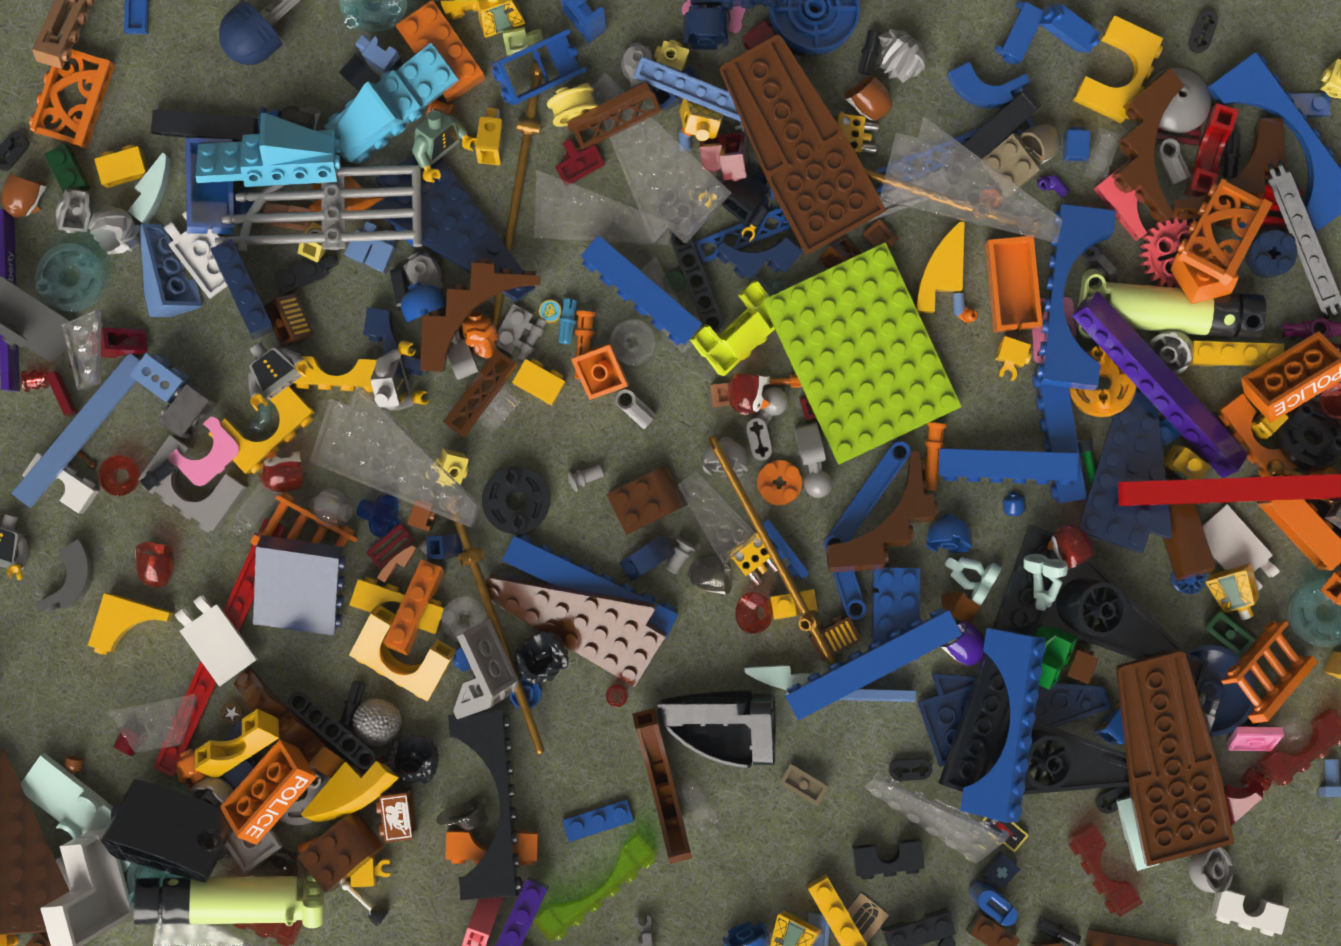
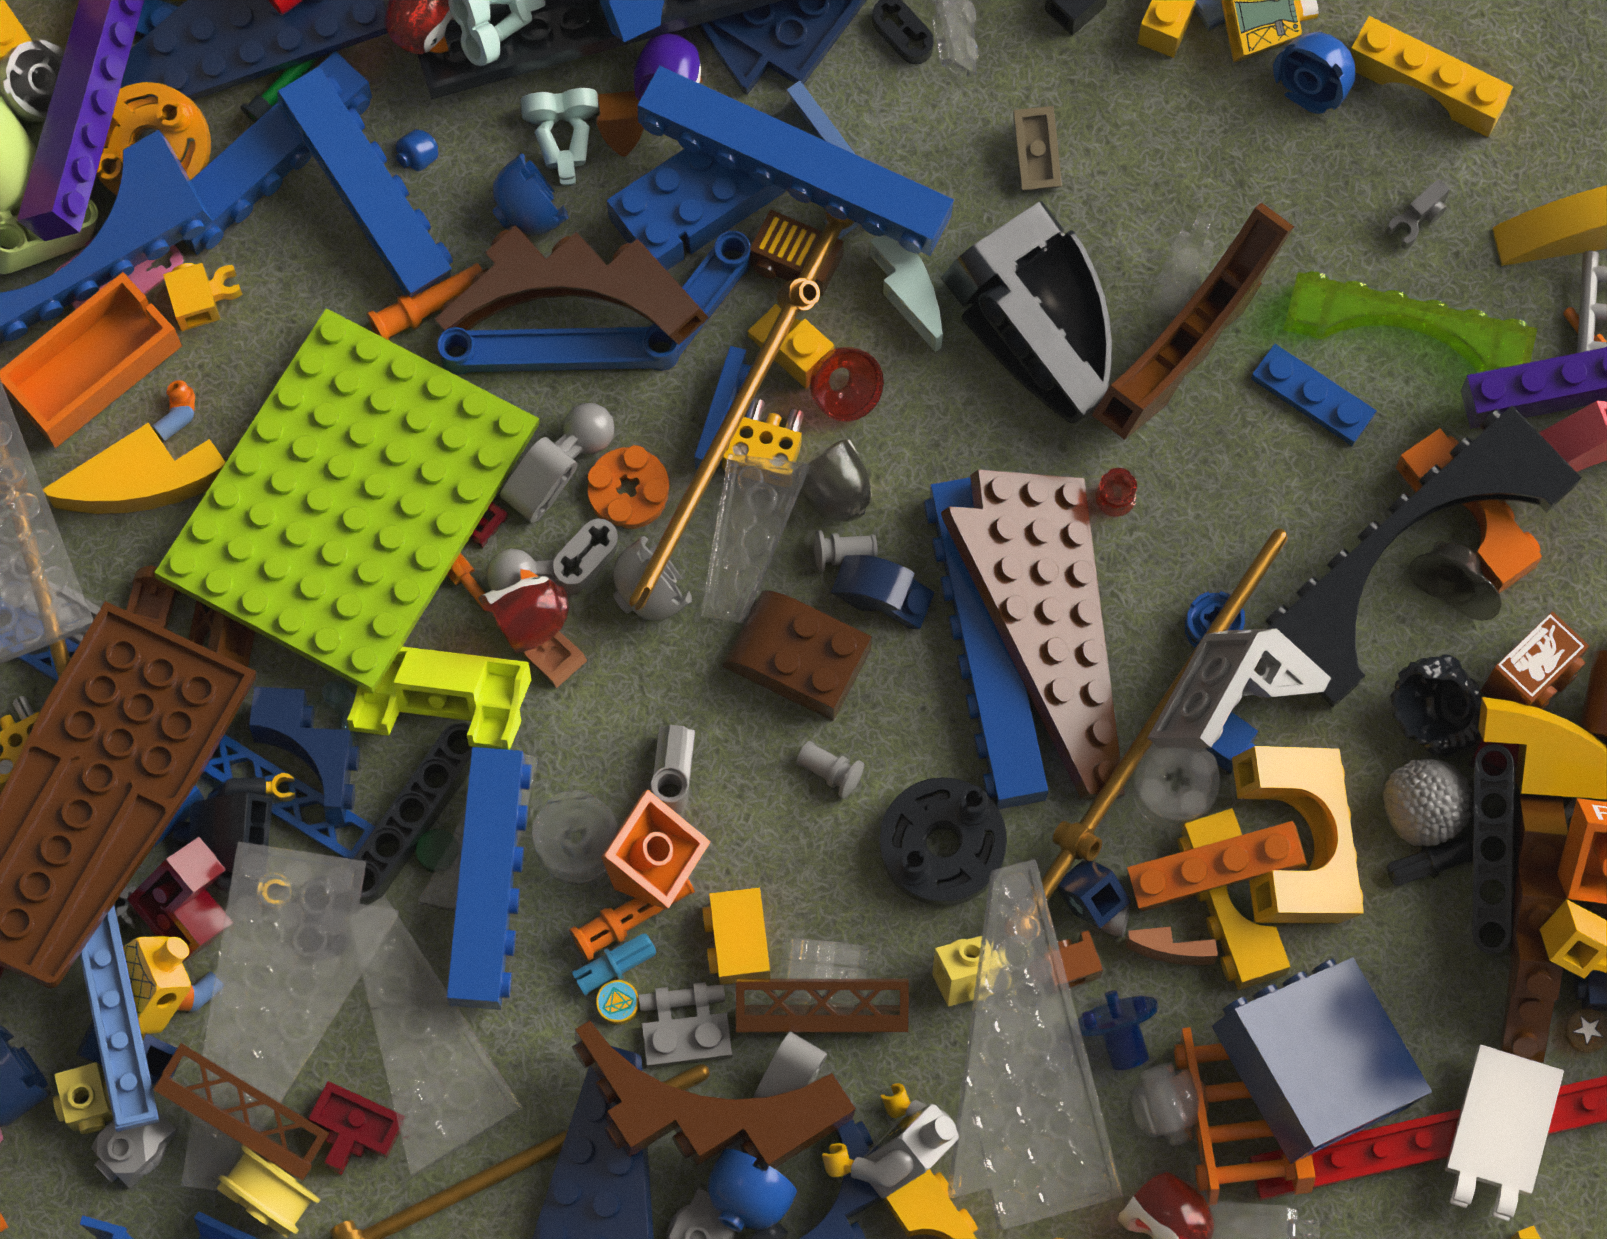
camera: 120 degrees left, 15 degrees down
(375, 559) = (1158, 963): dark red tile -> none
(480, 334) = (733, 1069): orange head -> none
(541, 657) = (1145, 629): black hair -> none

